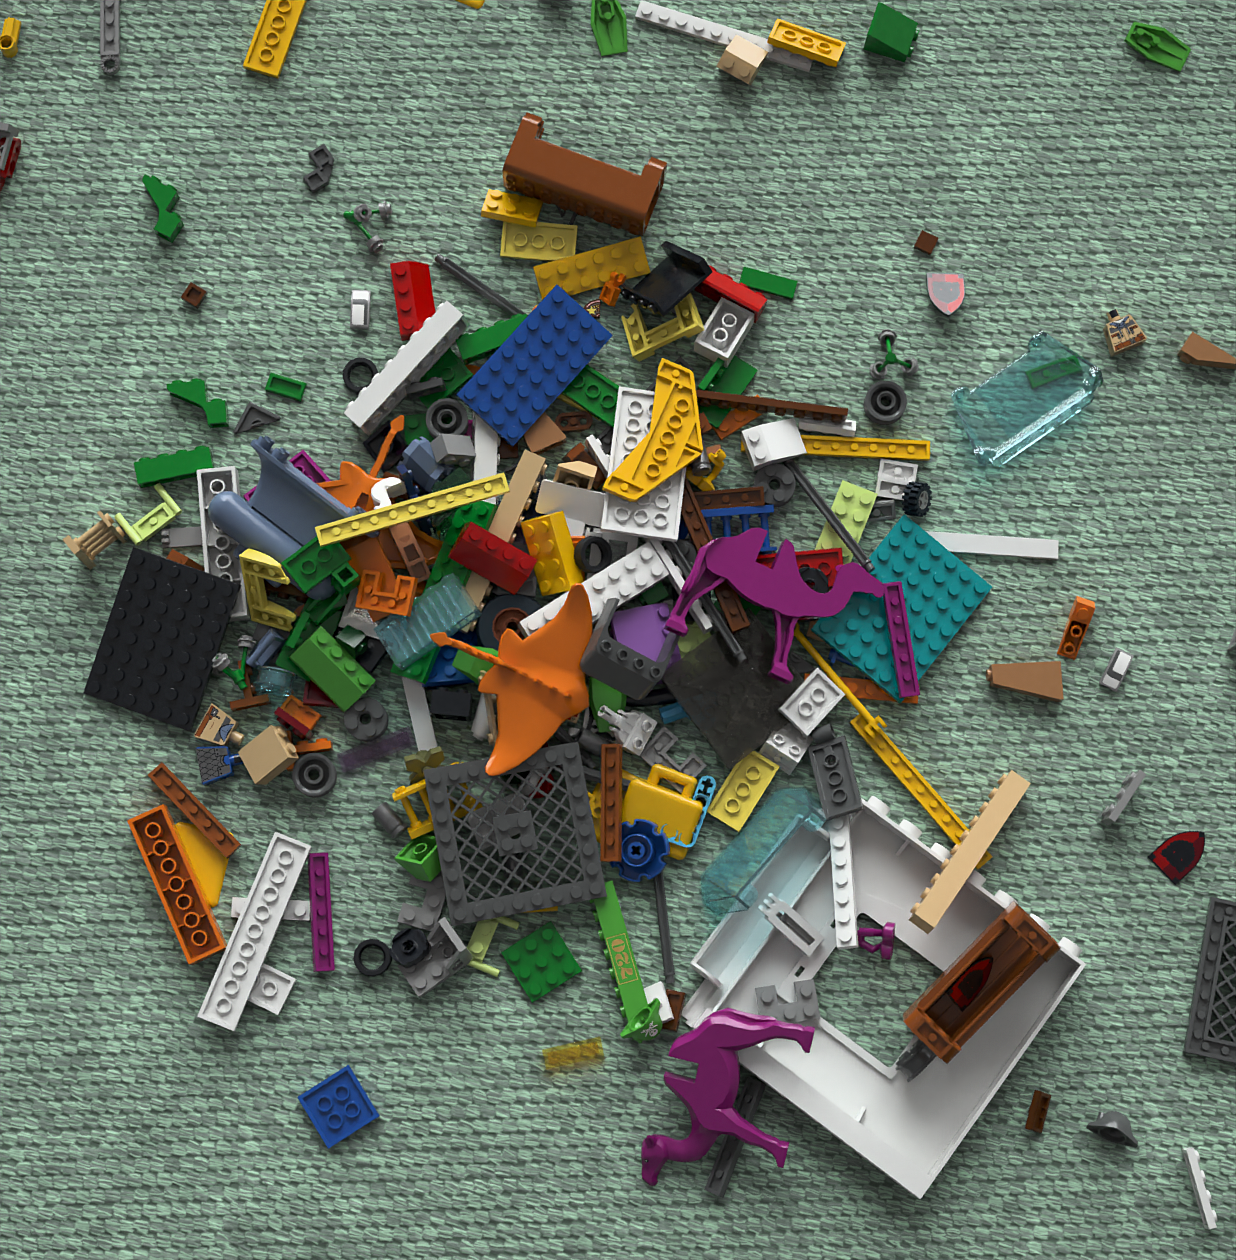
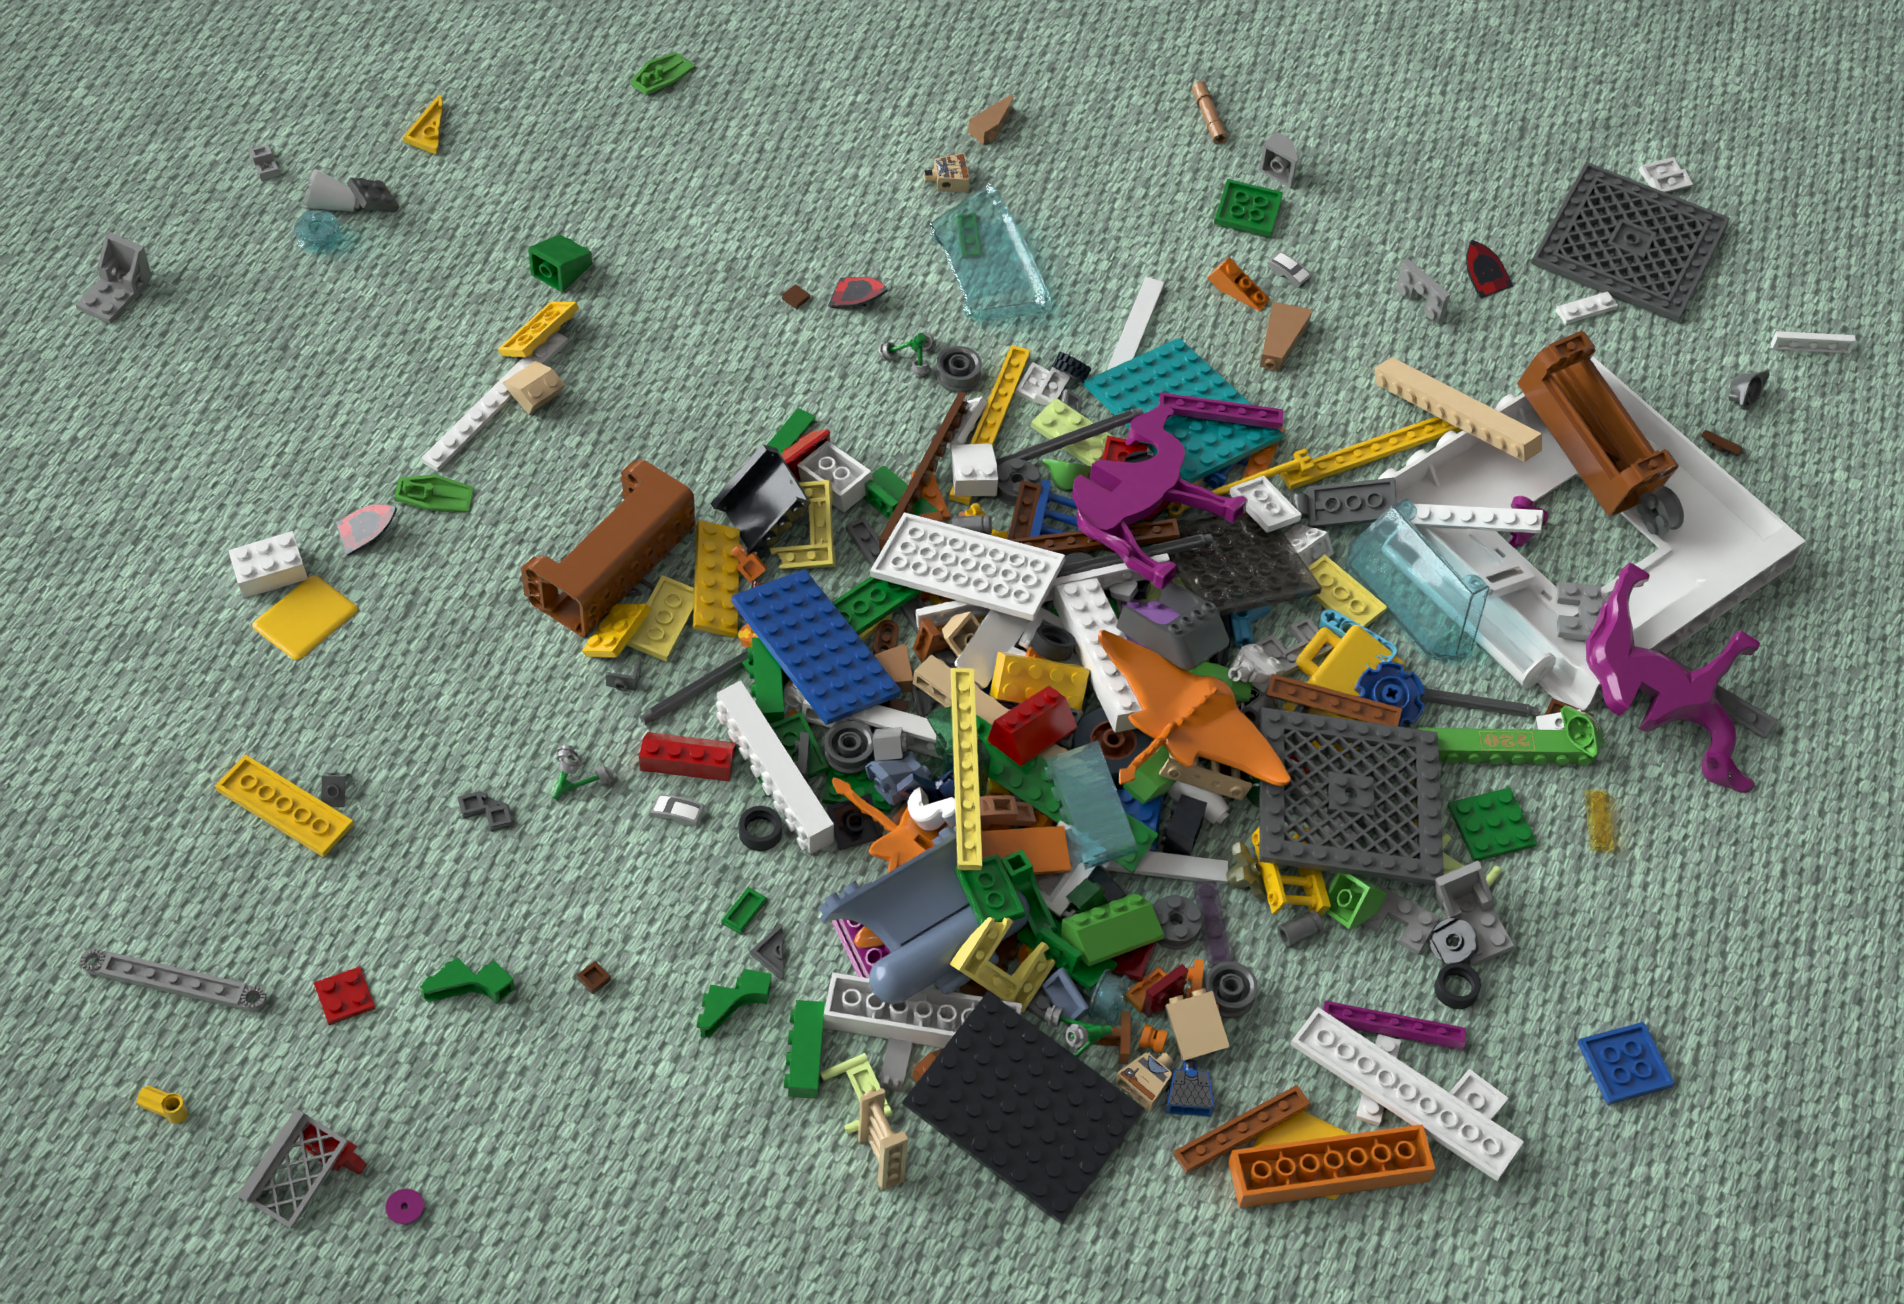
camera: 75 degrees left, 25 degrees down
(133, 126) = (344, 995): none -> red piece
(255, 724) = (1153, 1038): none -> orange wheel
(304, 50) = (333, 789): none -> dark grey bracket
(372, 599) = (1064, 822): orange plate -> none
(472, 237) = (623, 682): none -> dark grey bracket
(664, 448) = (950, 533): yellow wing -> none
(669, 599) = (1124, 591): none -> light grey tile
(796, 526) = (1065, 473): none -> bright green hat
(1169, 960) = (1586, 307): none -> white plate
(1181, 615) = (1248, 208): none -> green plate

